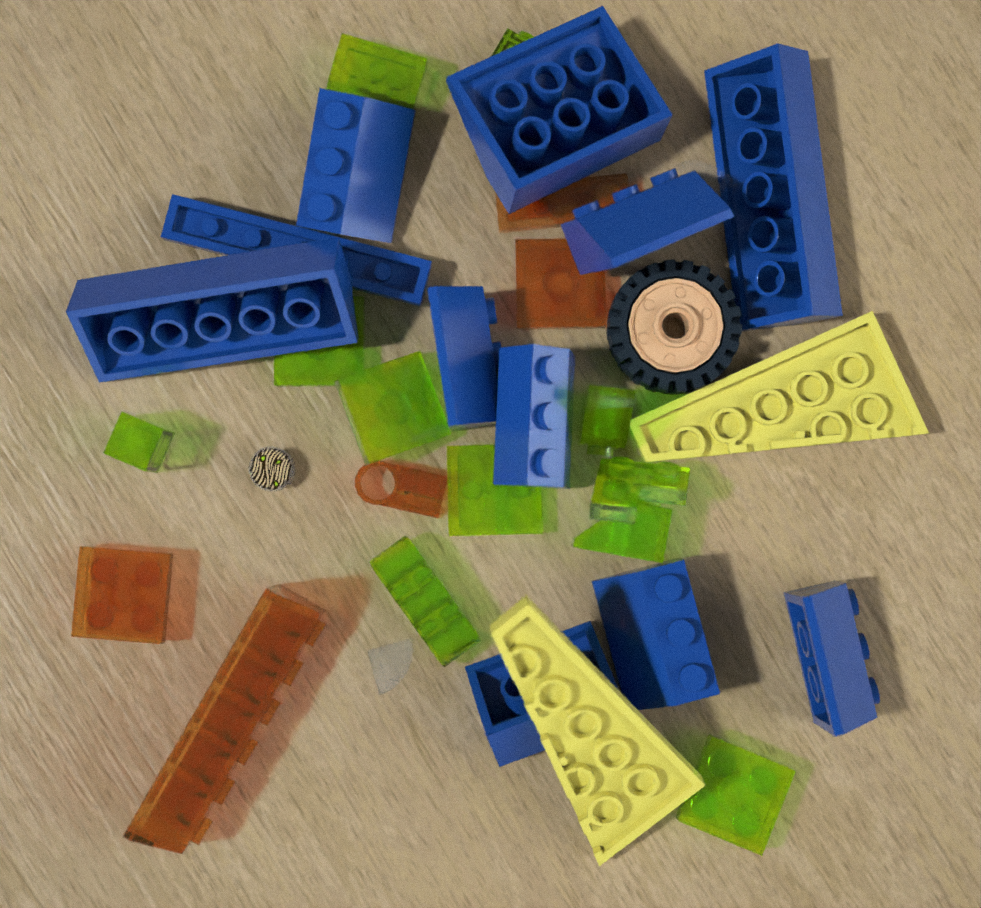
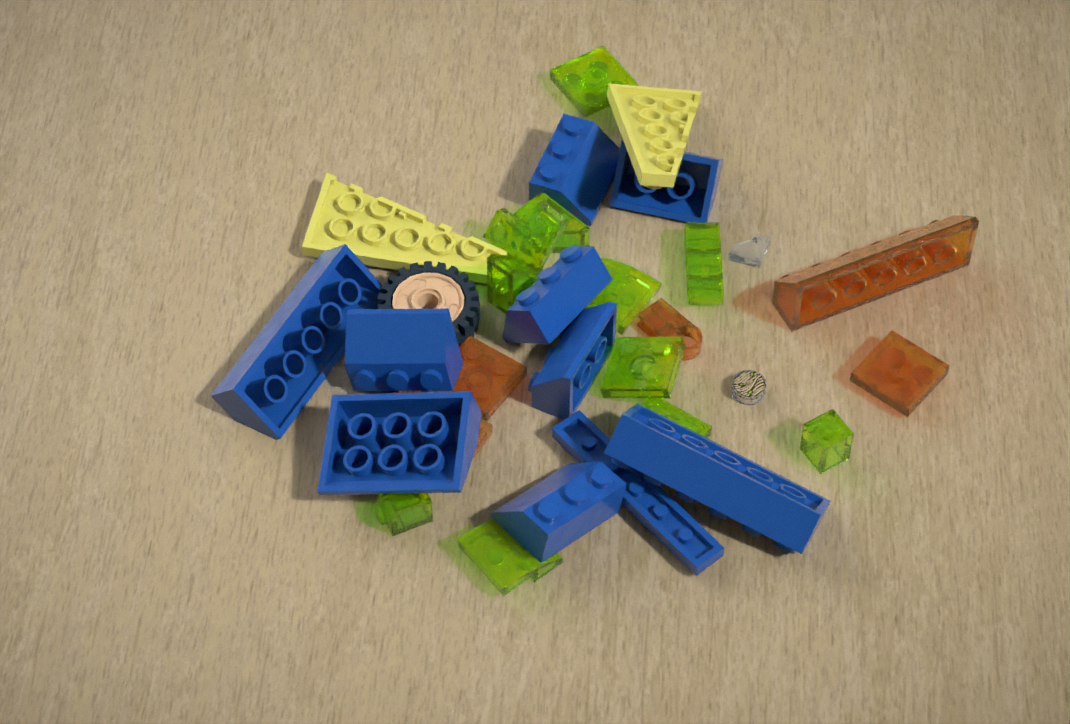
camera: 145 degrees left, 35 degrees down
(832, 656) = (482, 105): blue slope -> none

